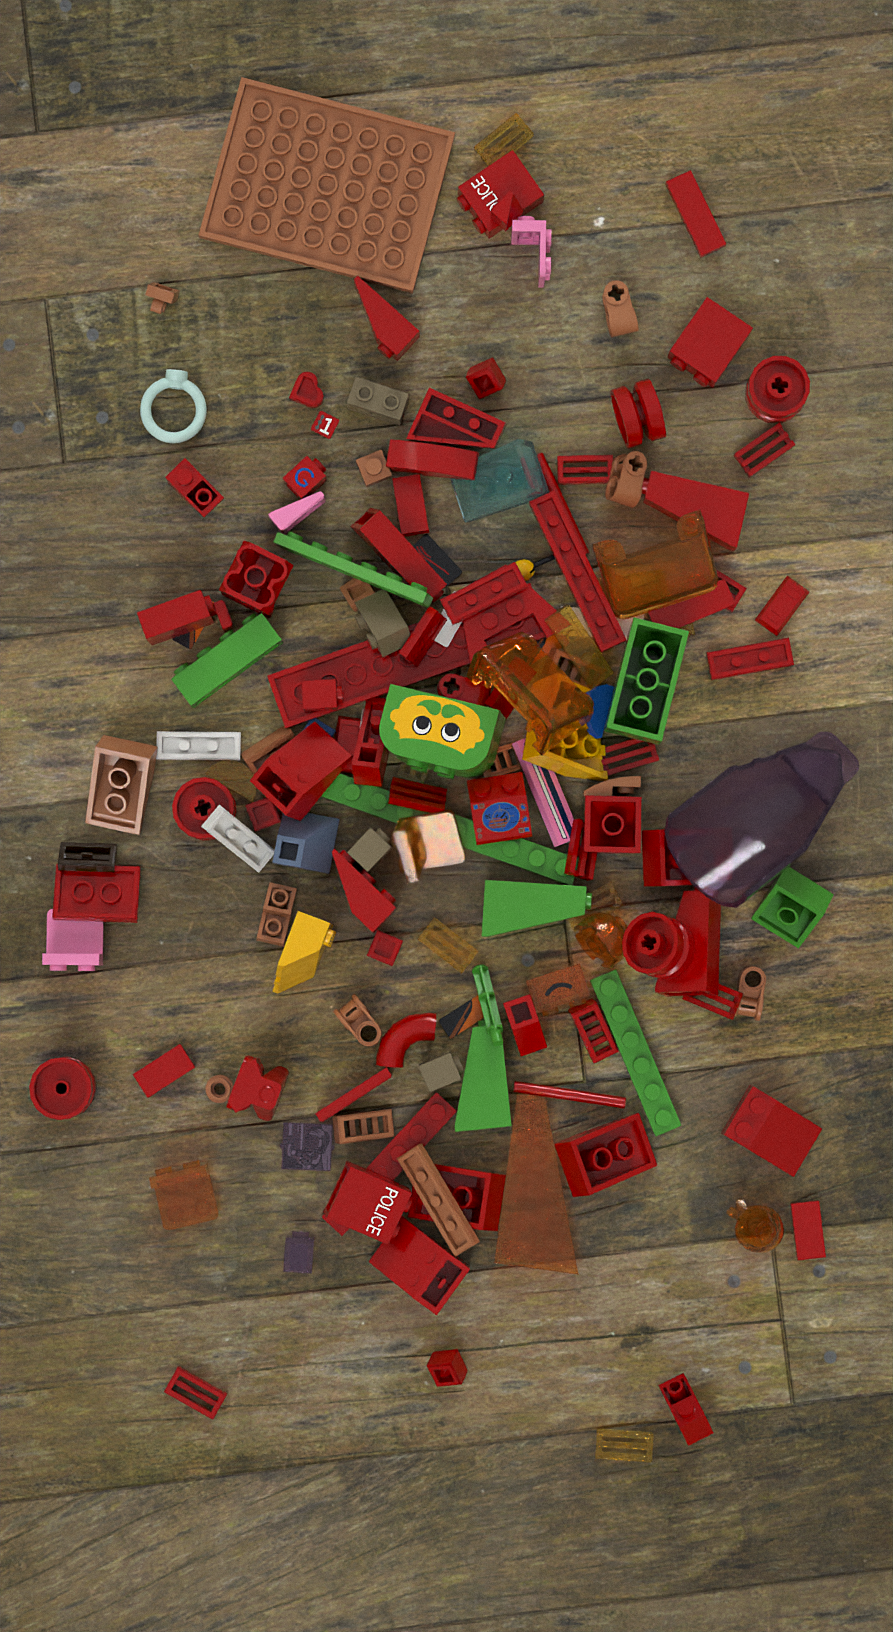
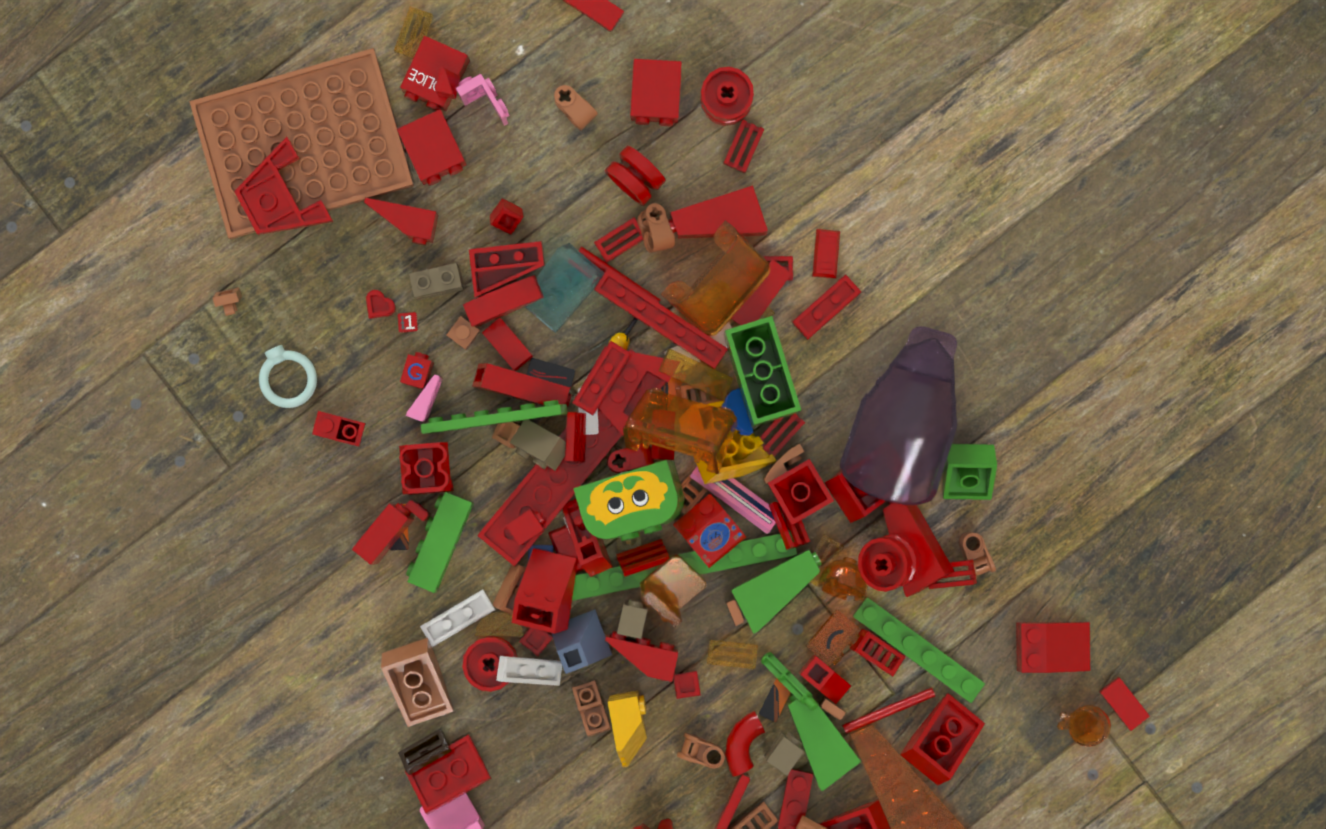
camera: 30 degrees left, 0 degrees up
(261, 218) = (270, 202): none -> red wing
(453, 266) = (432, 148): none -> red brick
(476, 904) = (735, 612): none -> nougat tile
(514, 1058) = (832, 708): none -> nougat tile

